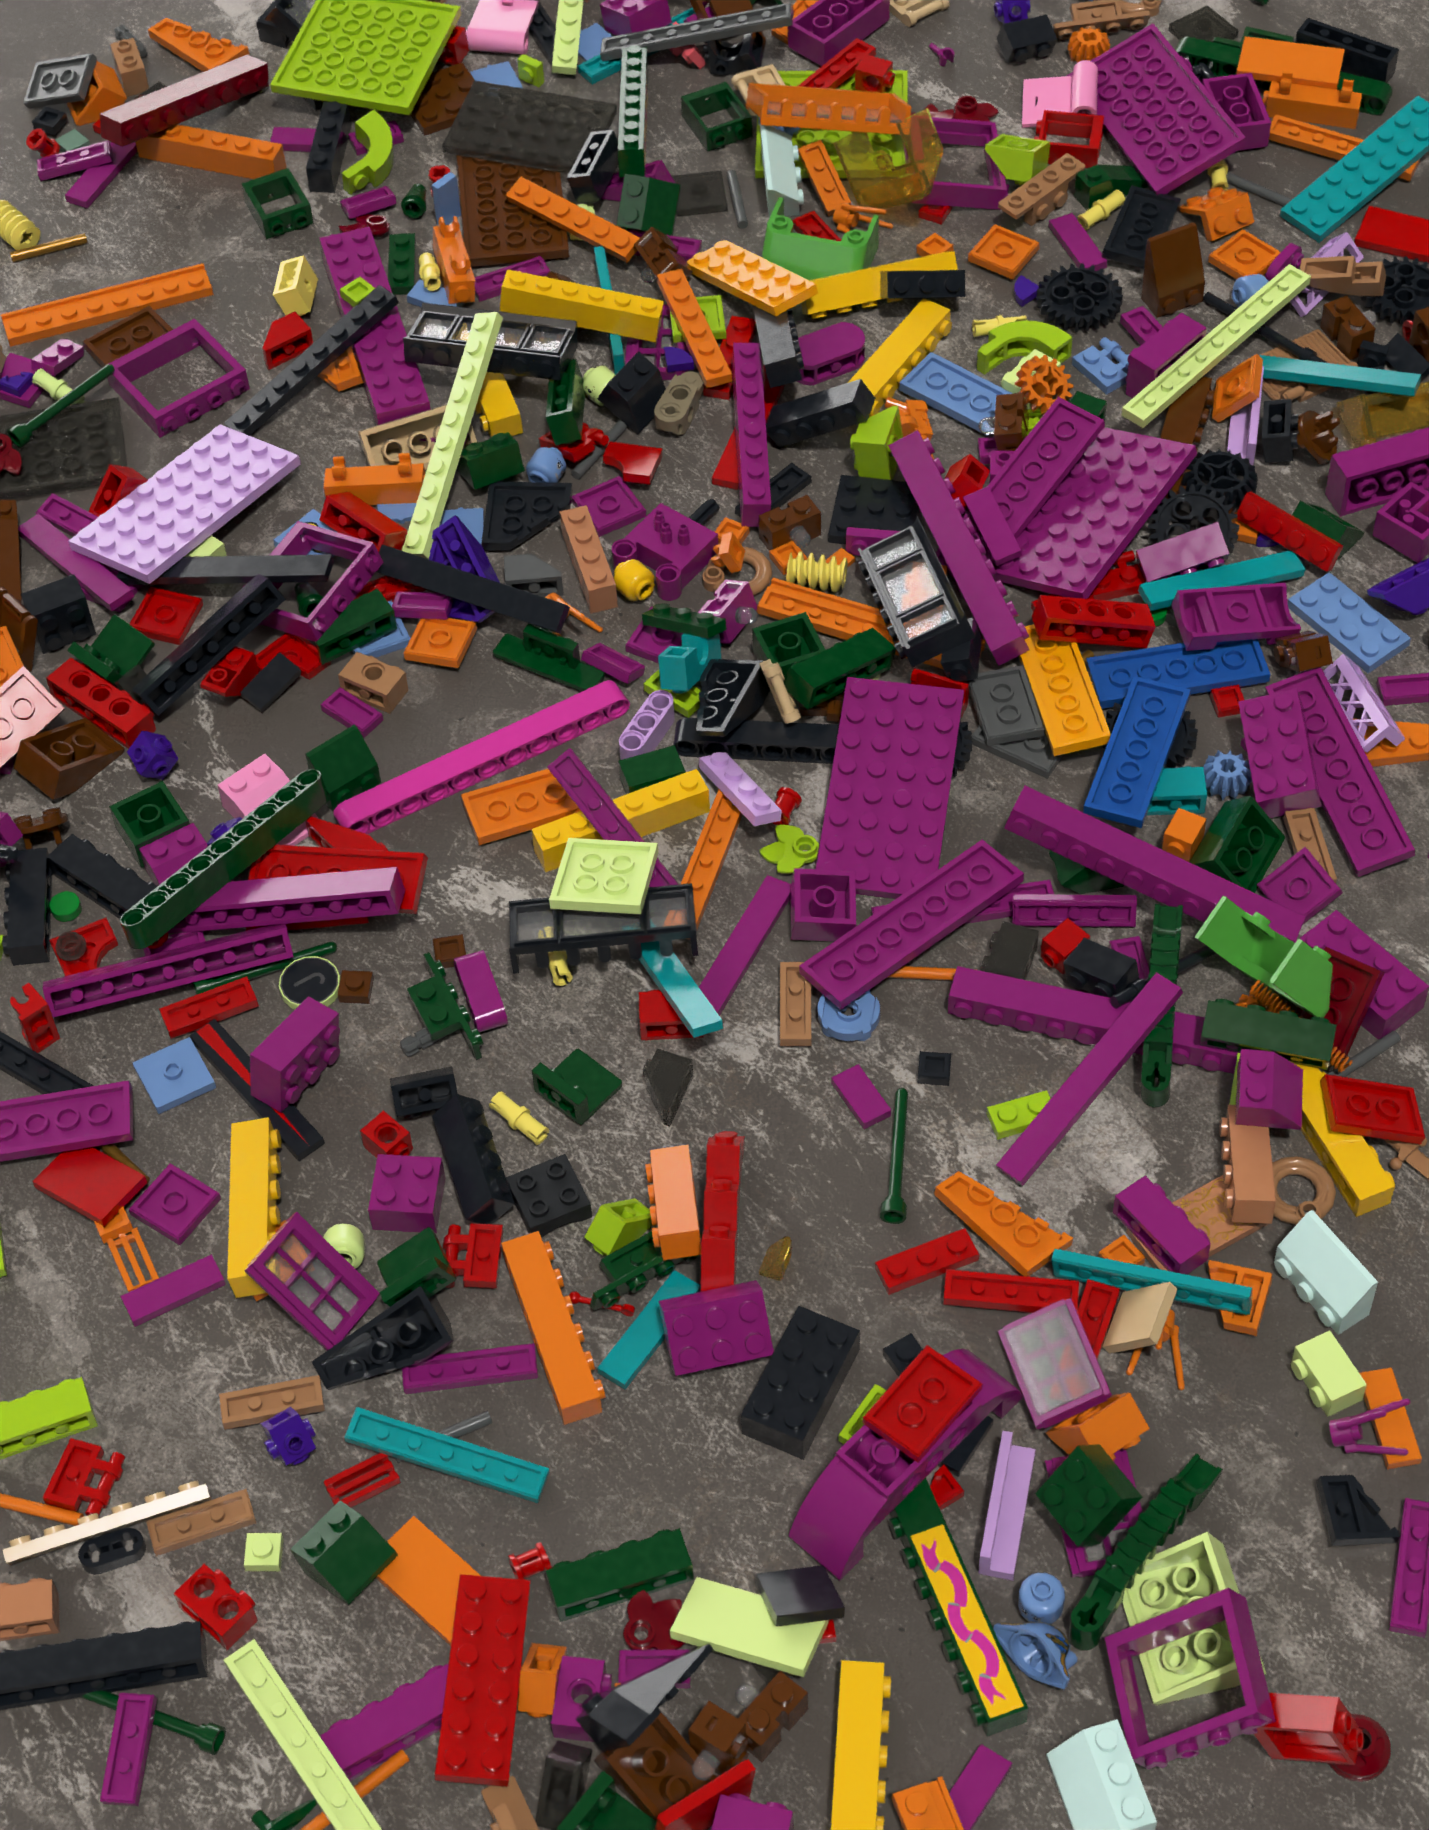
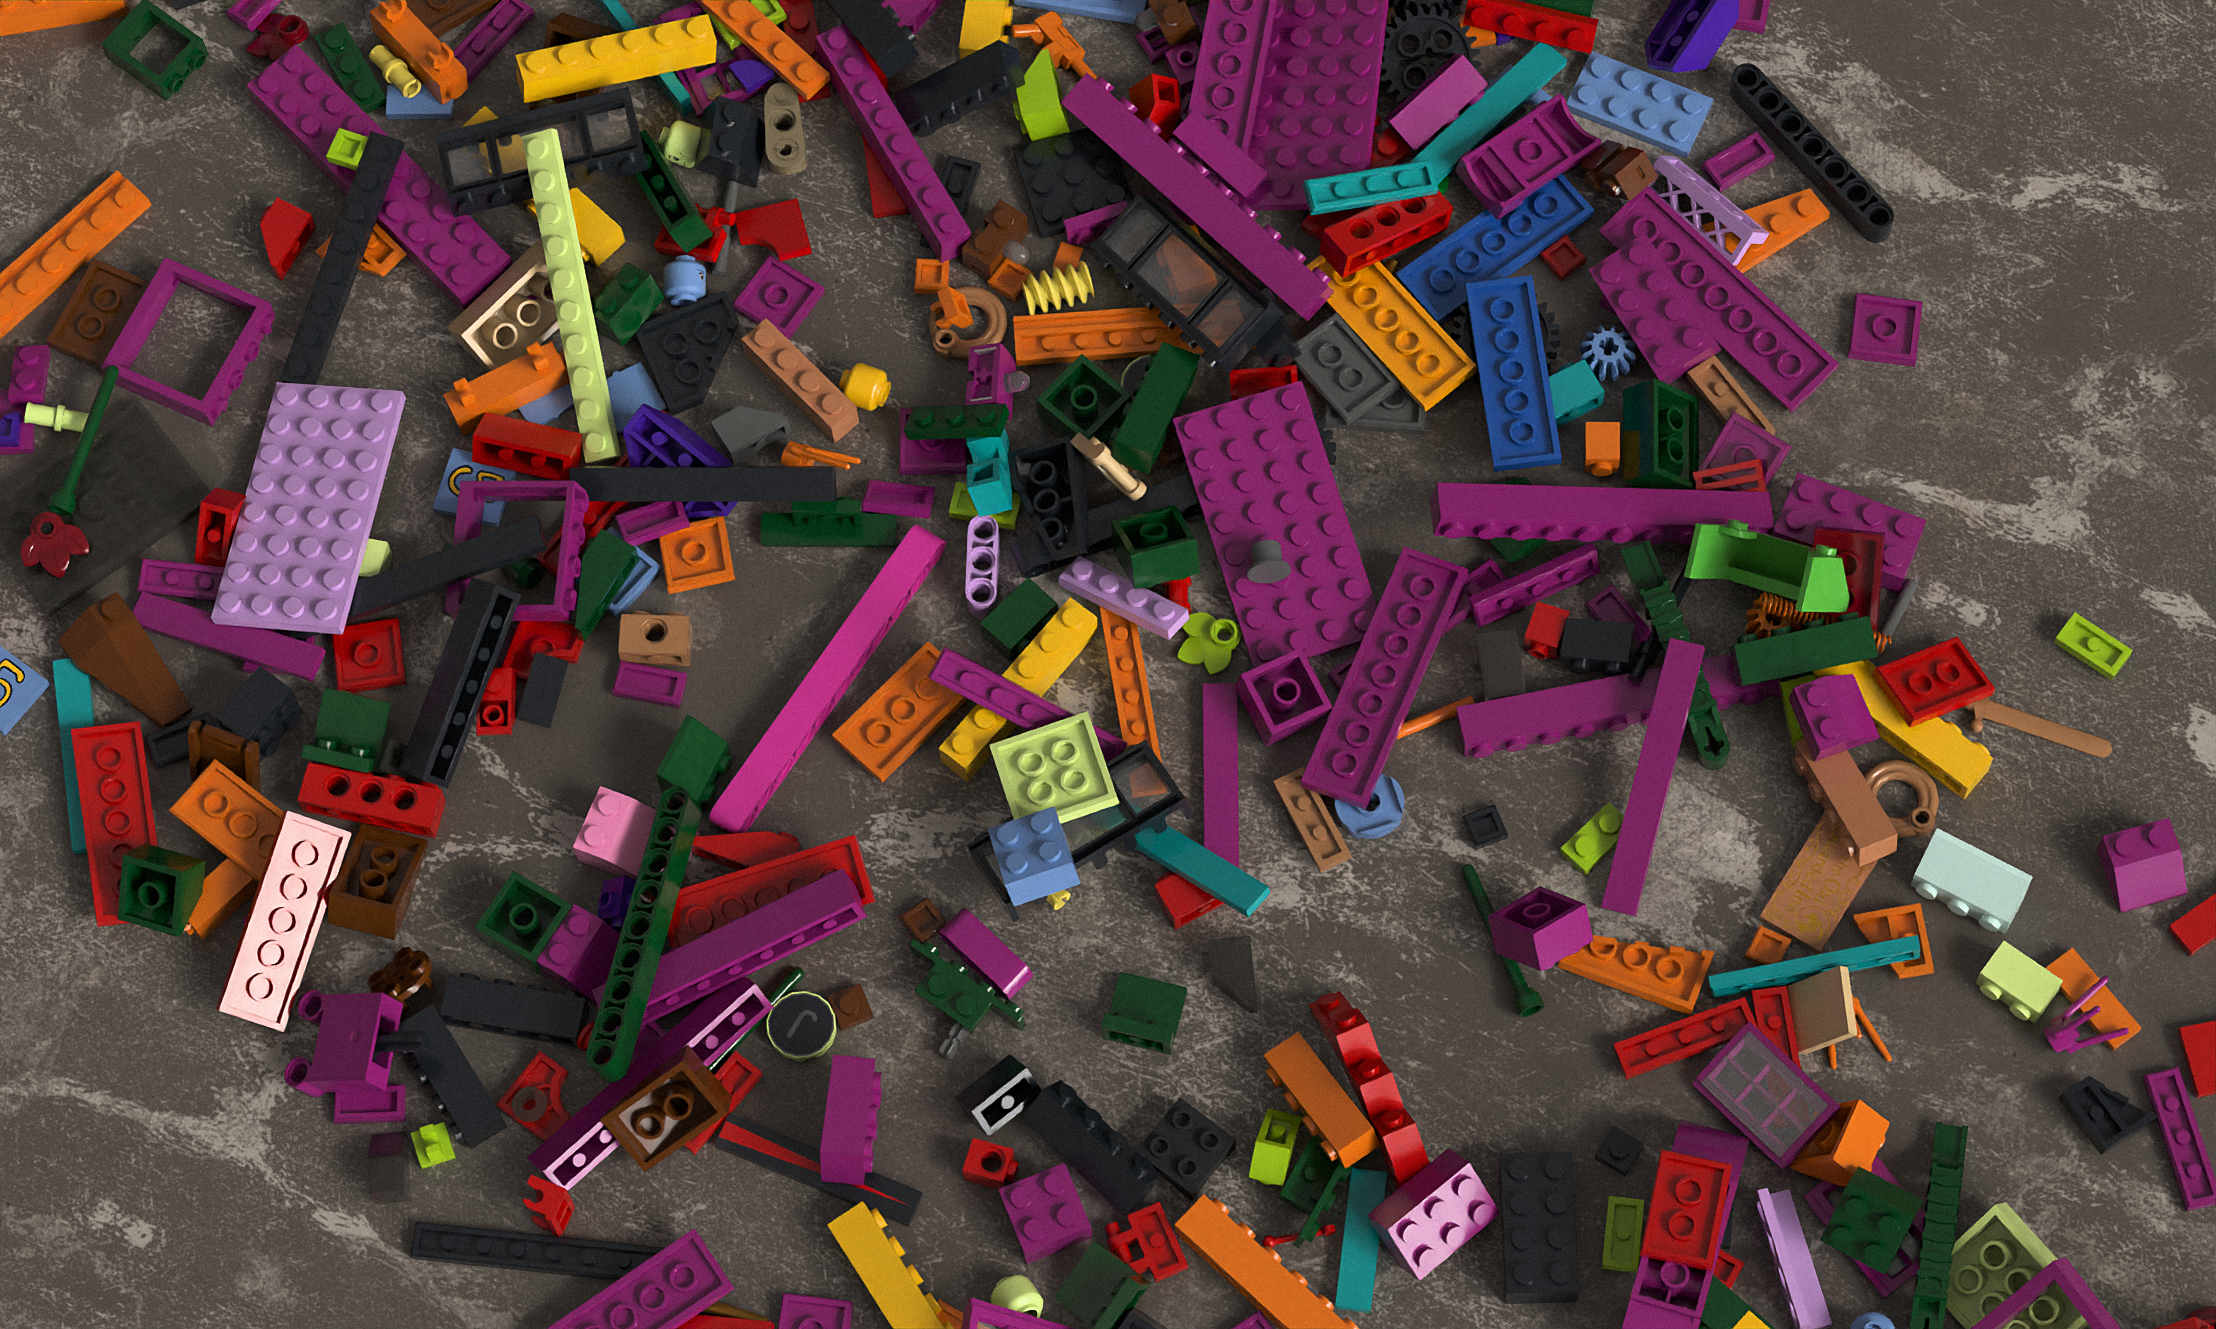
camera: 25 degrees left, 15 degrees up
(65, 906) = (486, 1057): green tile -> none
(152, 755) = (473, 839): dark purple brick -> none
(163, 985) = (667, 1108): none -> reddish brown slope
(174, 1075) = (724, 1194): medium blue plate -> none
(295, 286) = (254, 161): light yellow brick -> none
(519, 1118) = (1106, 1077): light yellow pin -> none
(548, 919) = (1034, 856): none -> medium blue brick
(671, 546) = (879, 323): magenta piece -> none
(777, 1259) = (1442, 1109): clear yellow slope -> none
(782, 761) = (1155, 547): none -> dark green brick
(861, 1096) = (1430, 892): magenta tile -> none
(862, 802) = (1267, 563): none -> dark grey piece
(926, 1261) = (1586, 1041): red plate -> none
(931, 1151) = (1540, 928): none -> magenta brick
(1094, 583) = (1370, 187): none -> teal tile
(1161, 1226) = (1796, 904): magenta brick -> none
(1302, 891) = (1759, 476): none -> red tile

